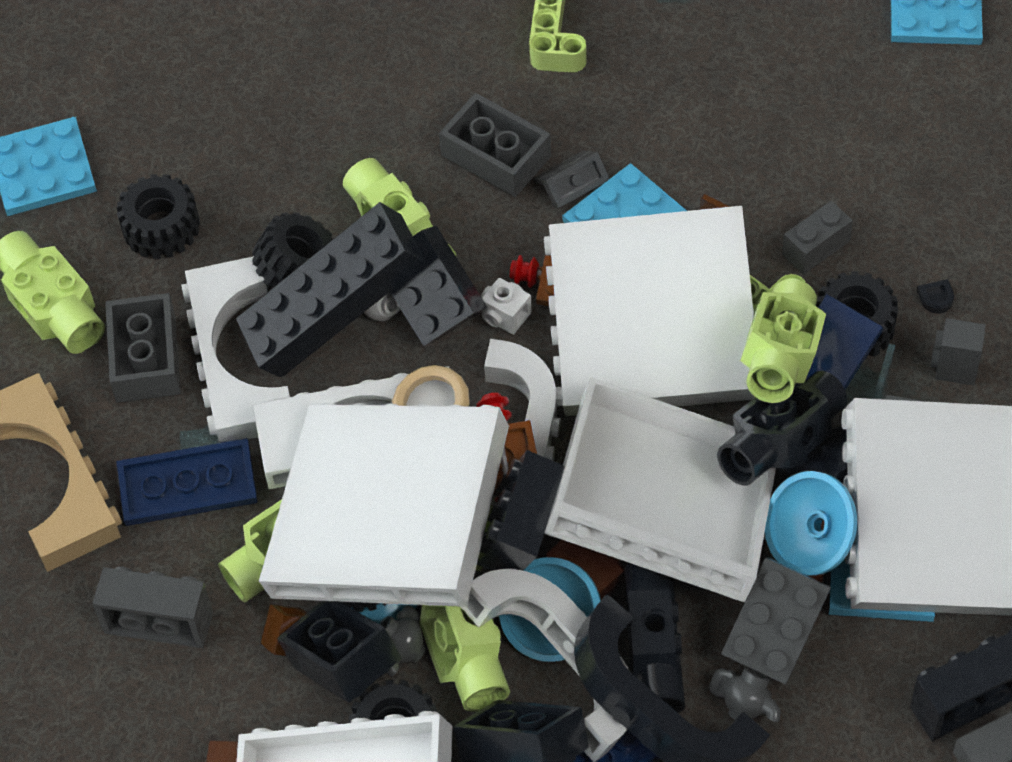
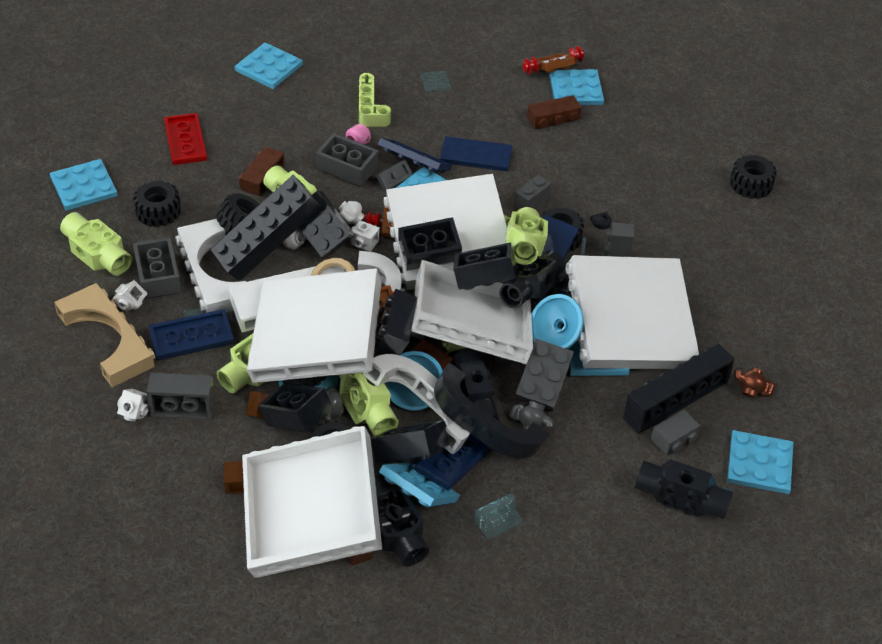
camera: 15 degrees left, 10 degrees down
(73, 614) = (133, 404): none -> white brick
(91, 401) = (129, 296): none -> white brick
(223, 81) = (185, 139): none -> red tile
(355, 140) = (252, 179): none -> copper brick
(487, 256) = (351, 212): none -> white piece
(522, 94) = (359, 133): none -> bright pink head
(610, 343) = (429, 241): none -> black brick
(617, 141) = (418, 157): none -> dark blue plate
(695, 406) = (485, 266): none -> black brick
(730, 140) = (476, 153): none -> dark blue tile
(885, 60) = (554, 112): none -> copper brick

